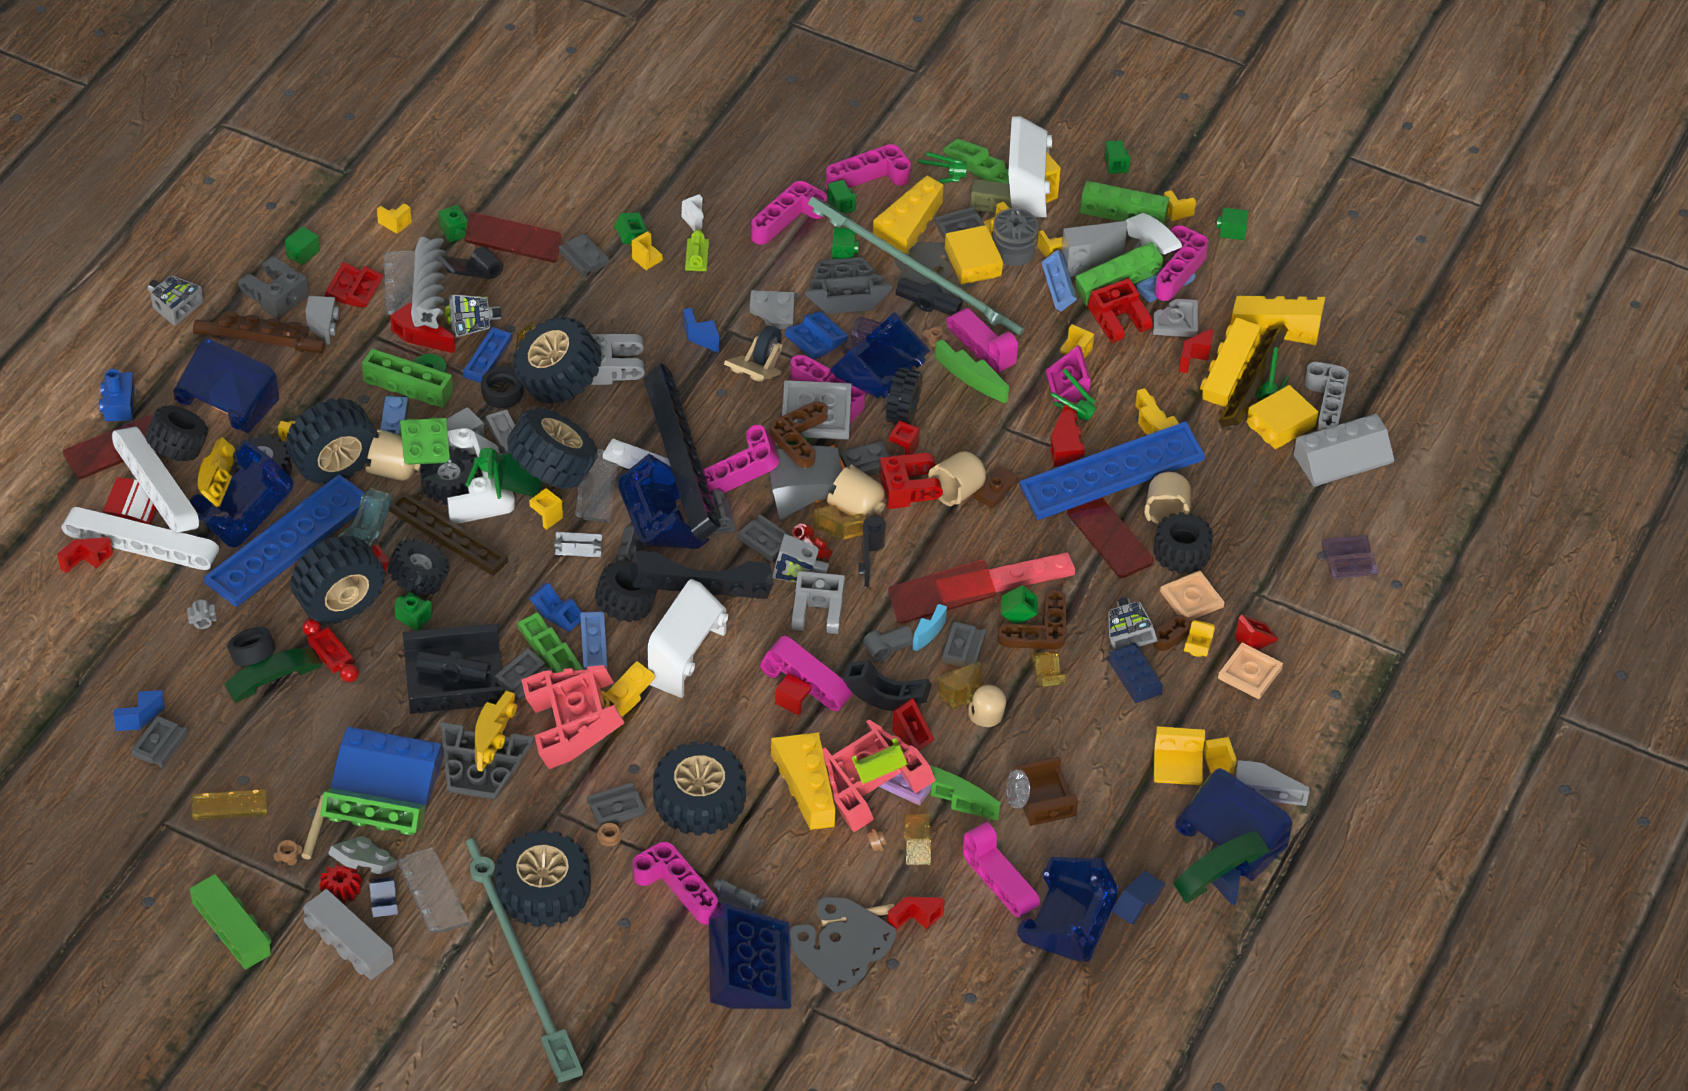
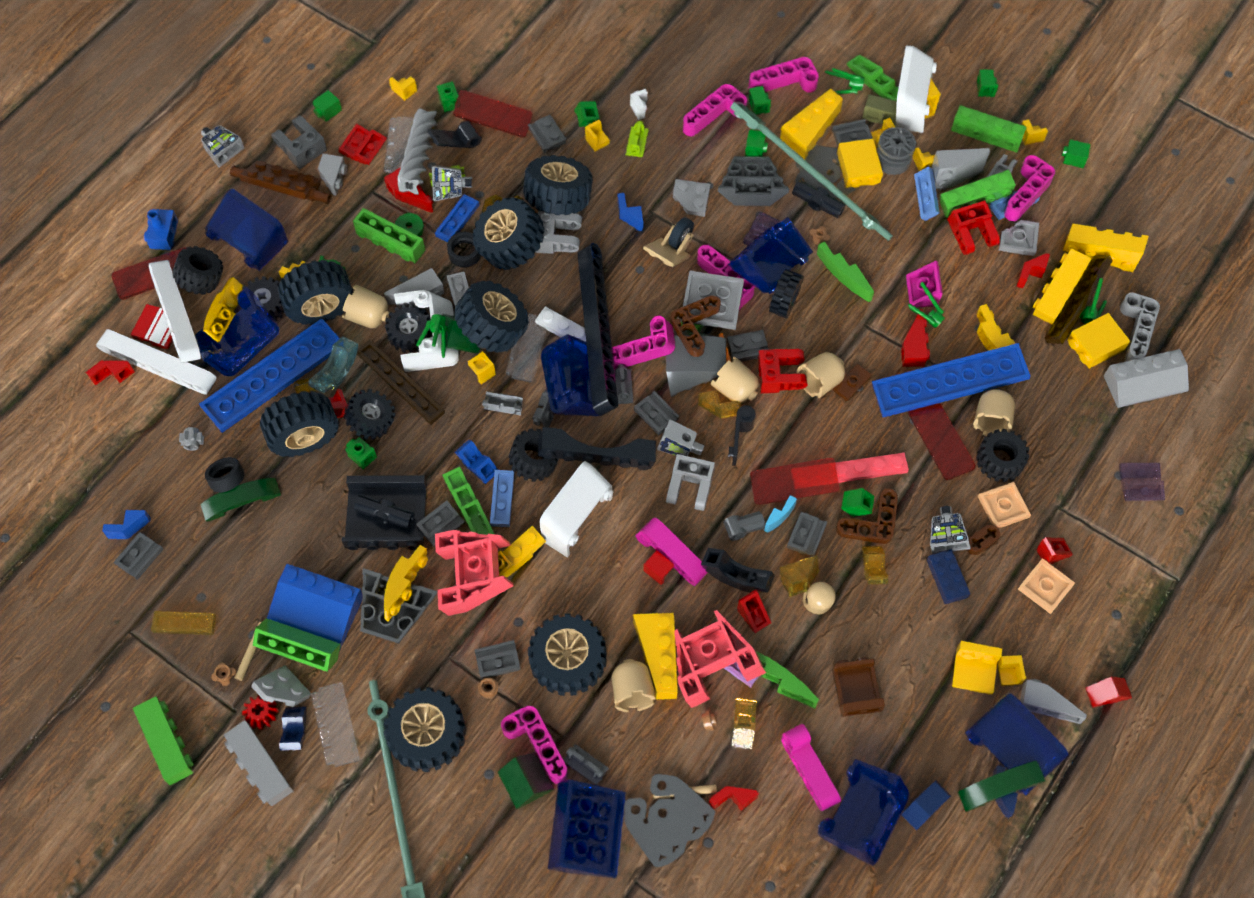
camera: 10 degrees right, 15 degrees up
(330, 650) = (289, 483): red plate -> none
(394, 410) = (375, 269): medium blue hinge -> none
(424, 441) = (390, 300): bright green bracket -> none
(609, 303) = (557, 185): none -> black wheel
(667, 921) = (525, 779): none -> dark green slope
(782, 812) = (632, 686): none -> tan cylinder
(805, 533) = (688, 413): red plate -> none
(816, 335) = (723, 225): blue slope -> none
(880, 762) = (719, 656): lime hinge -> none
(905, 436) = (782, 330): red panel -> none
(995, 350) = (866, 255): dark pink beam -> none
(1017, 789) = (835, 685): clear gear -> none
(1078, 337) = (935, 252): yellow panel -> none
(1151, 230) = (1009, 159): white slope -> none
(1199, 638) = (1006, 550): yellow bracket -> none
(1334, 768) = (1108, 691): none -> slope

